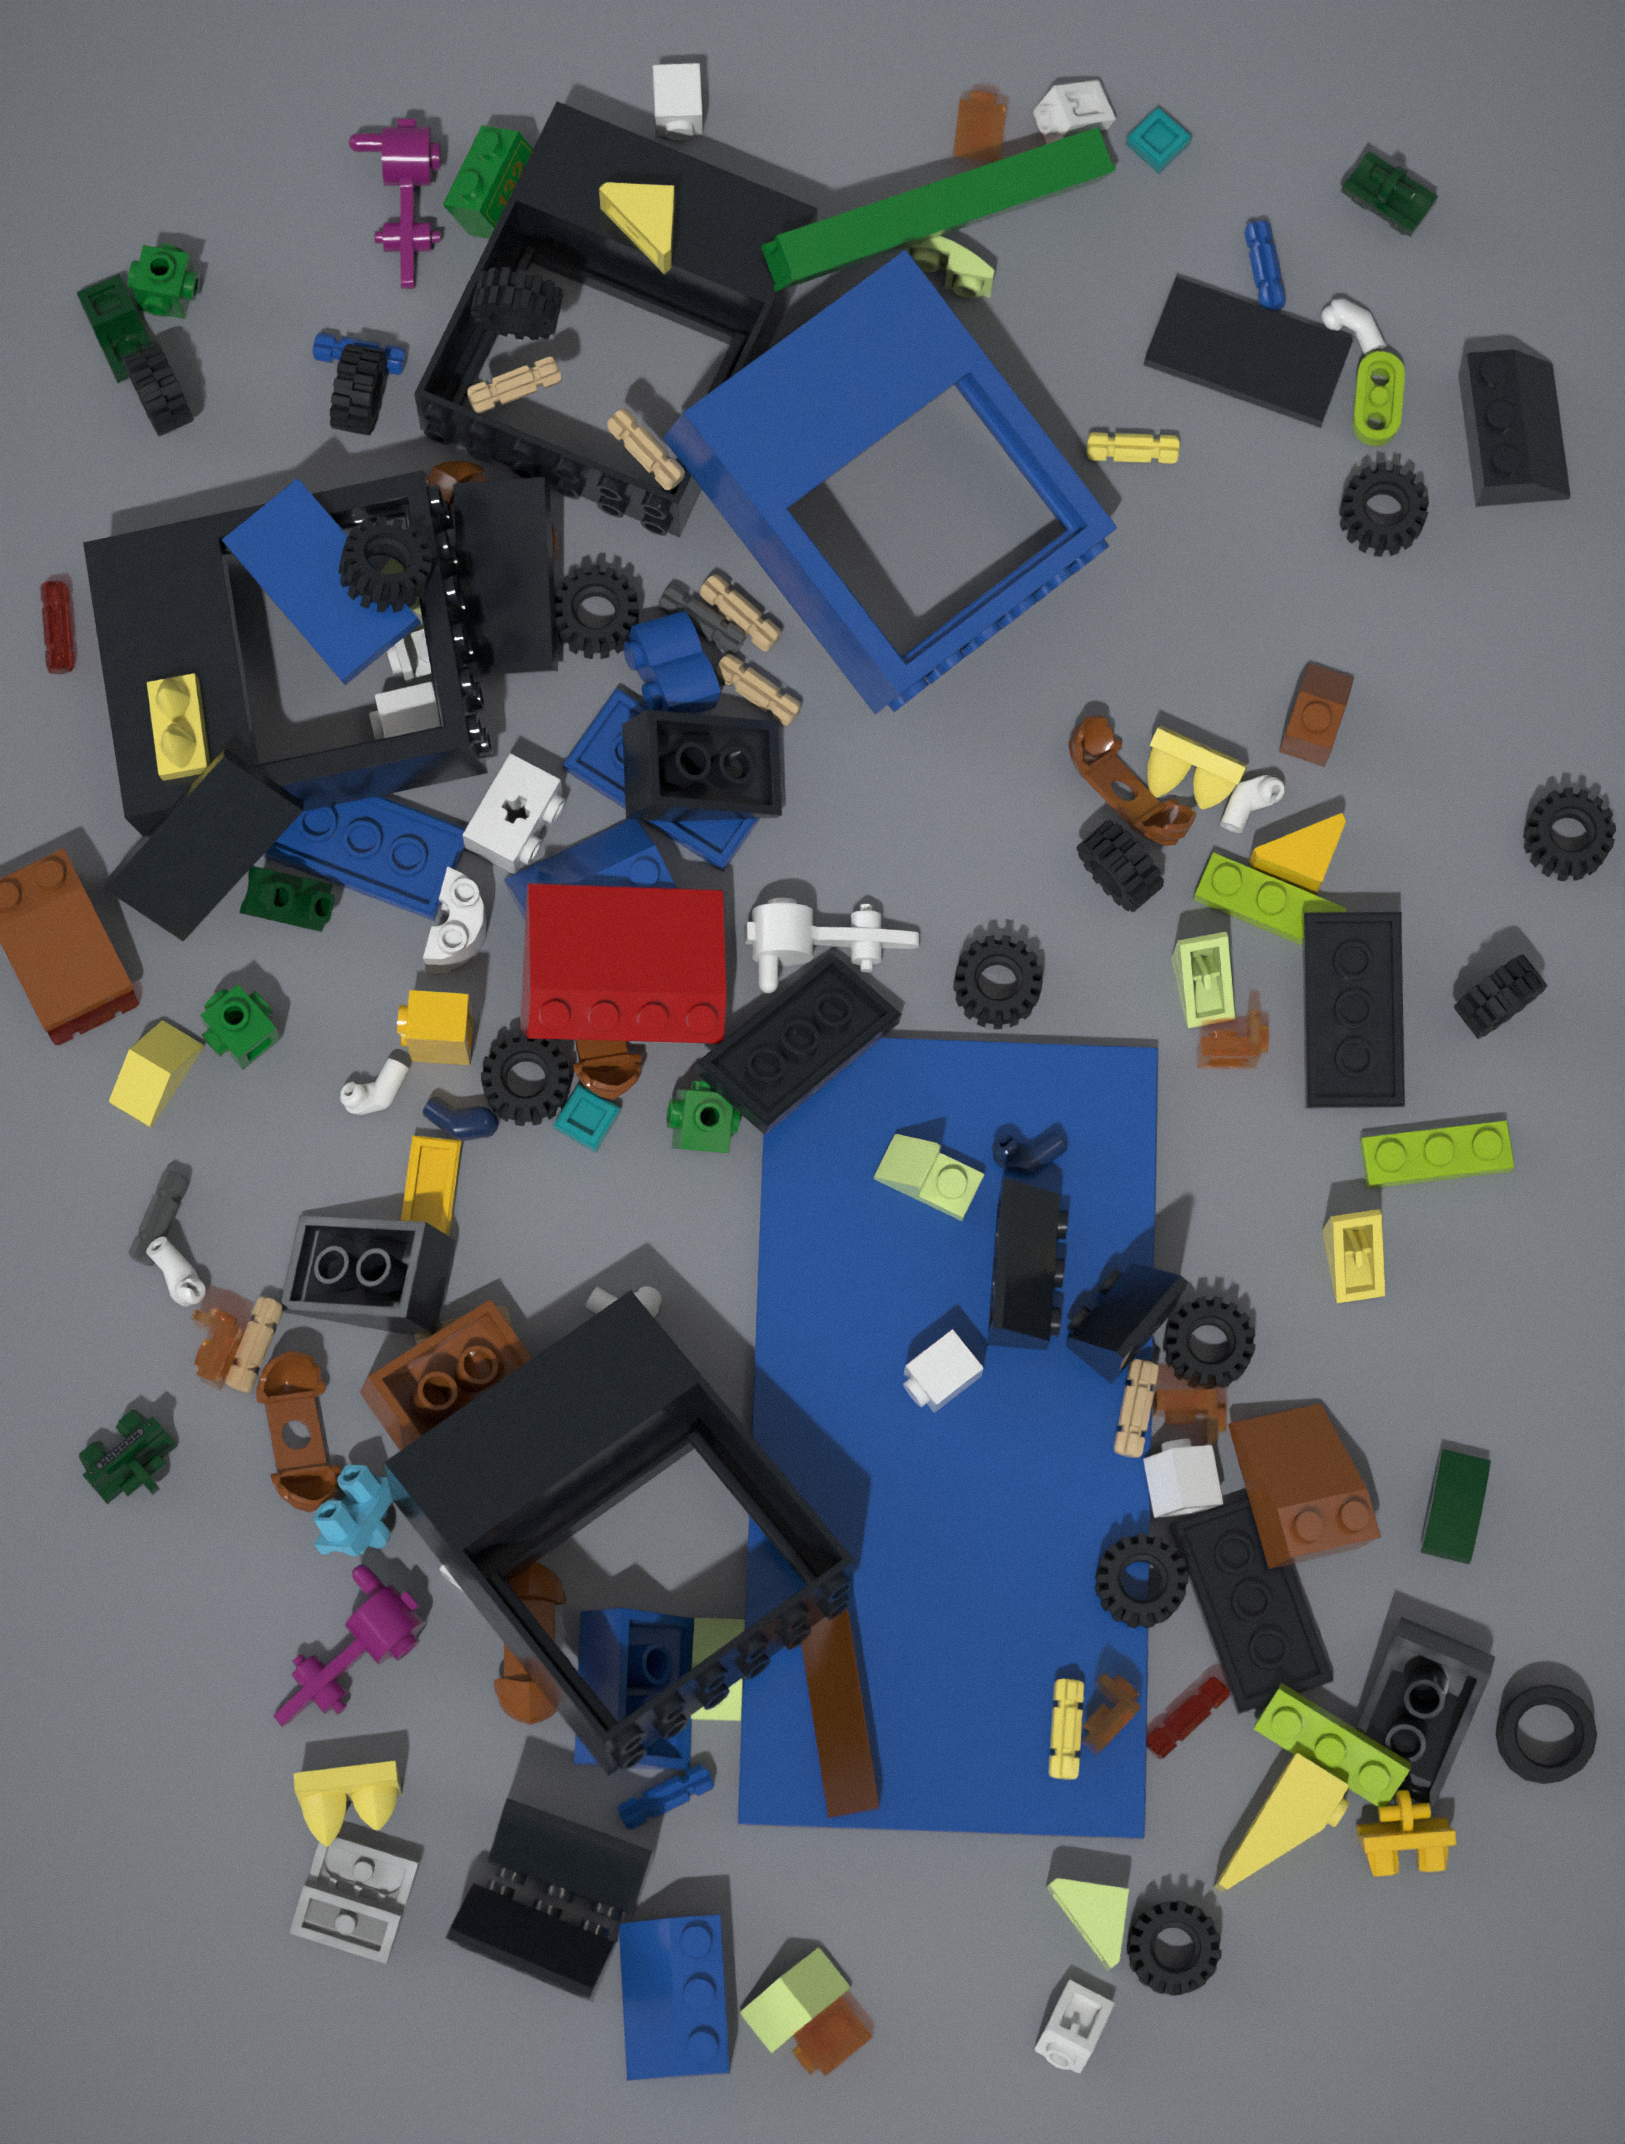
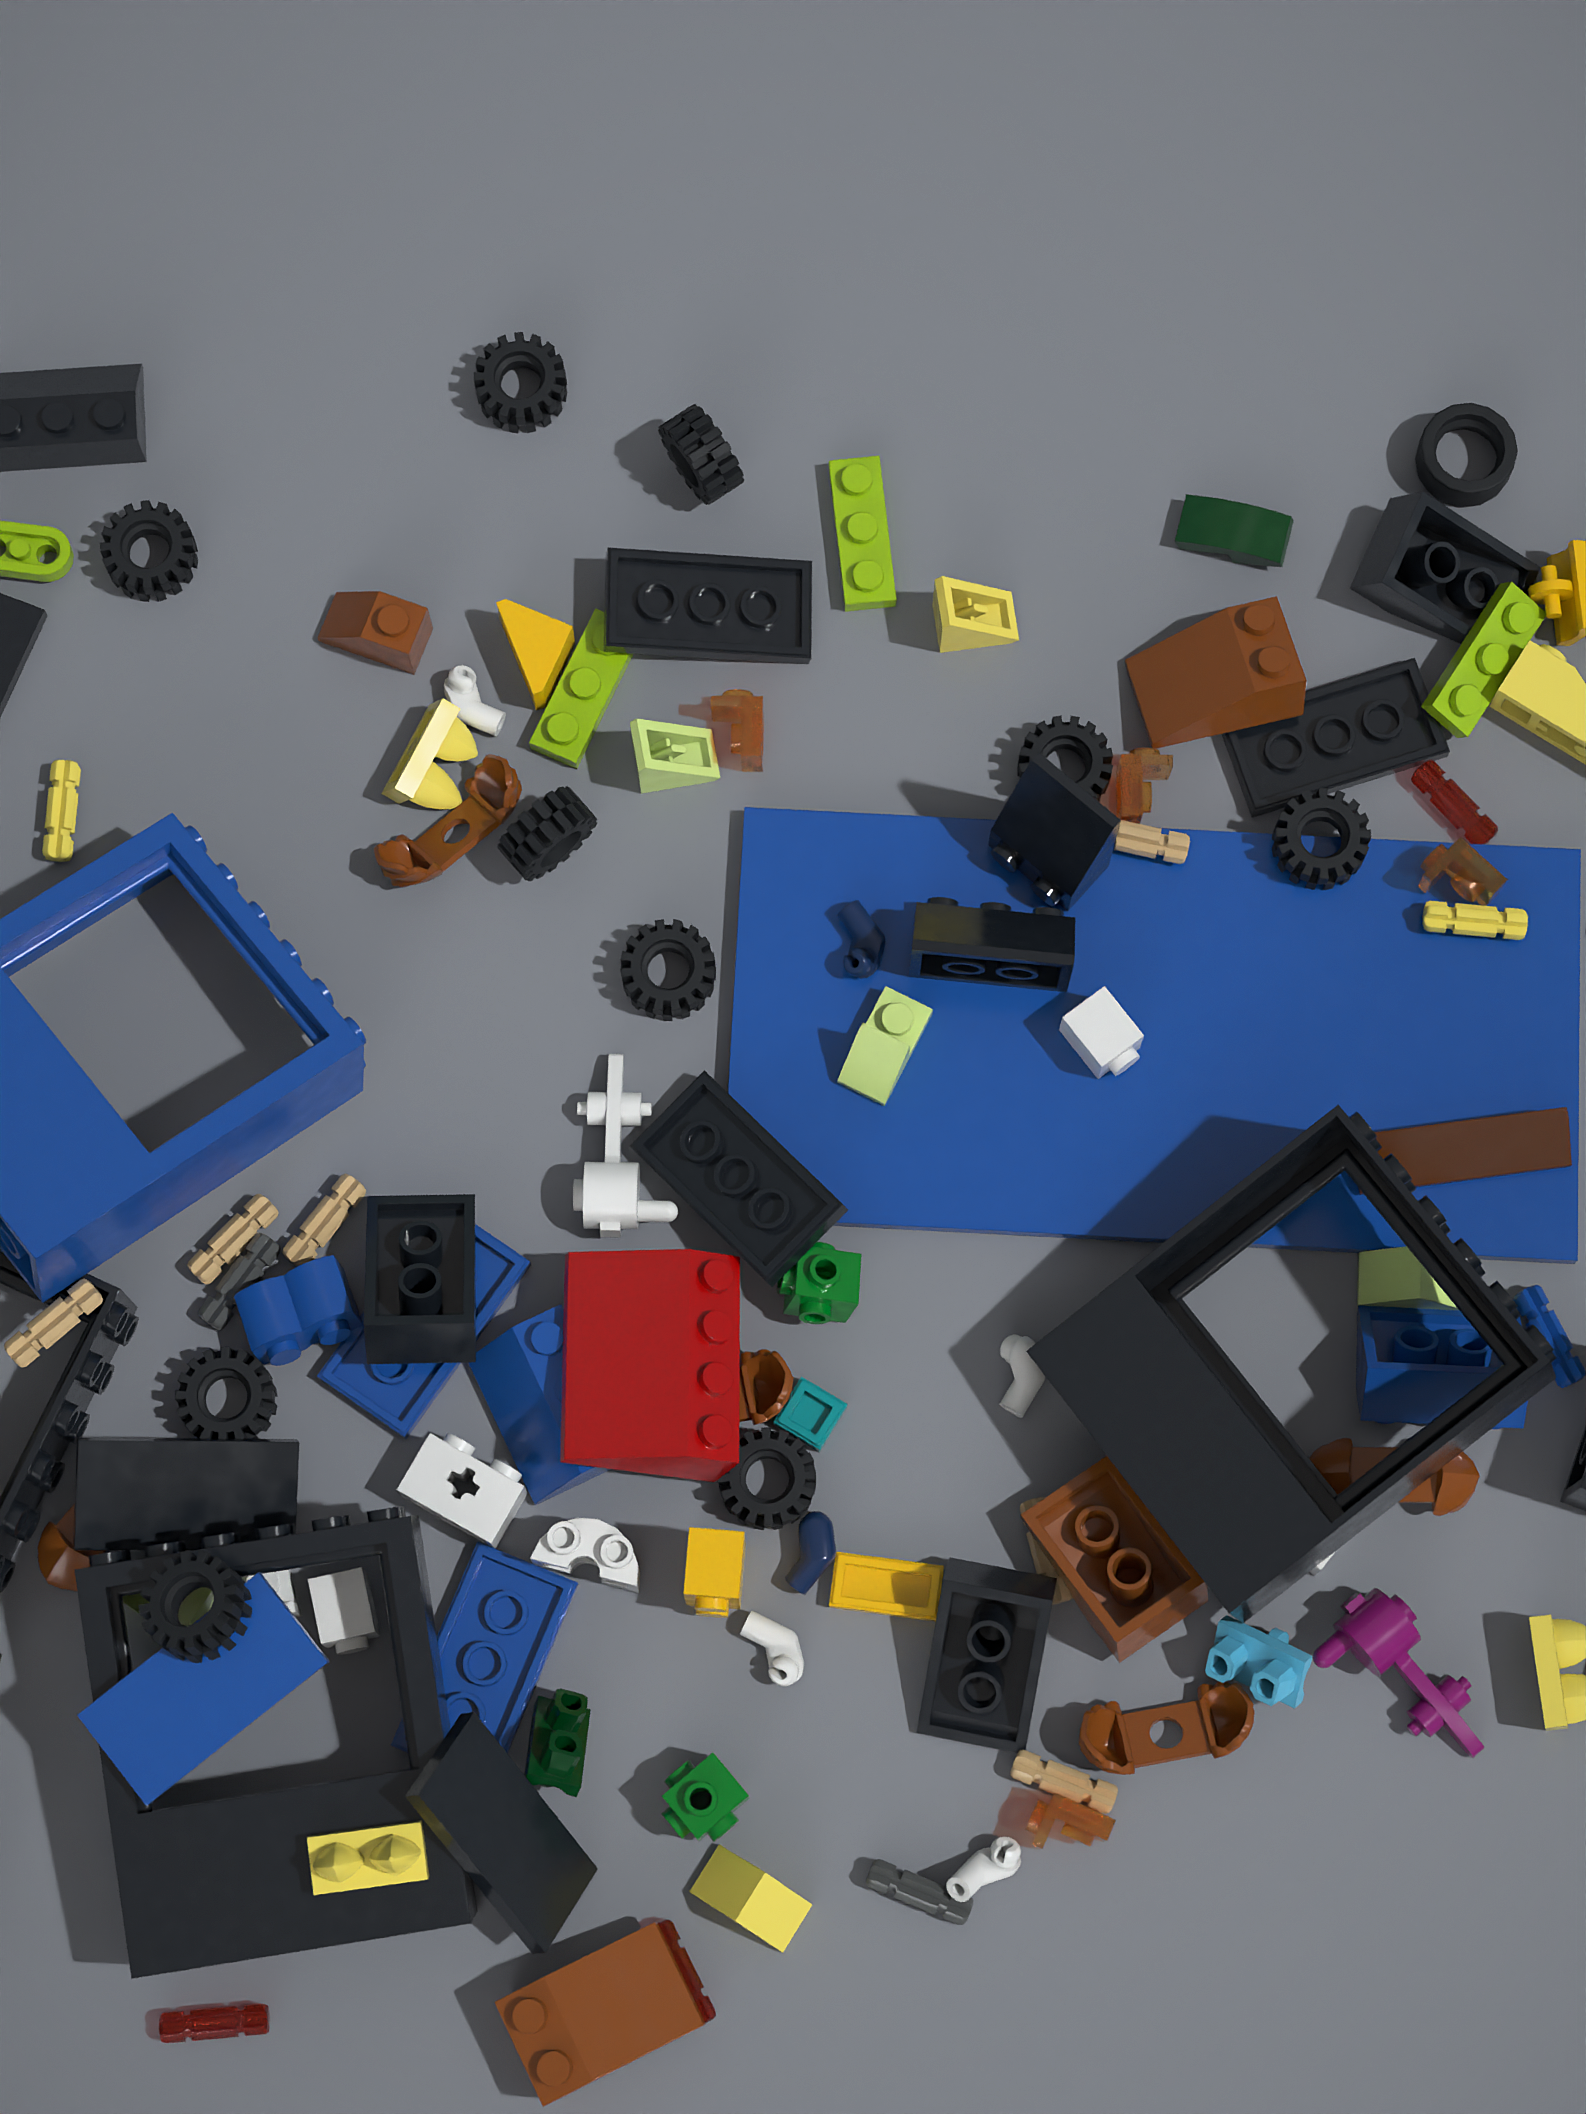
camera: 85 degrees left, 0 degrees up
(131, 1461) = (1210, 1939): dark green hips -> none
(1182, 1479) = (1212, 795): white brick -> none

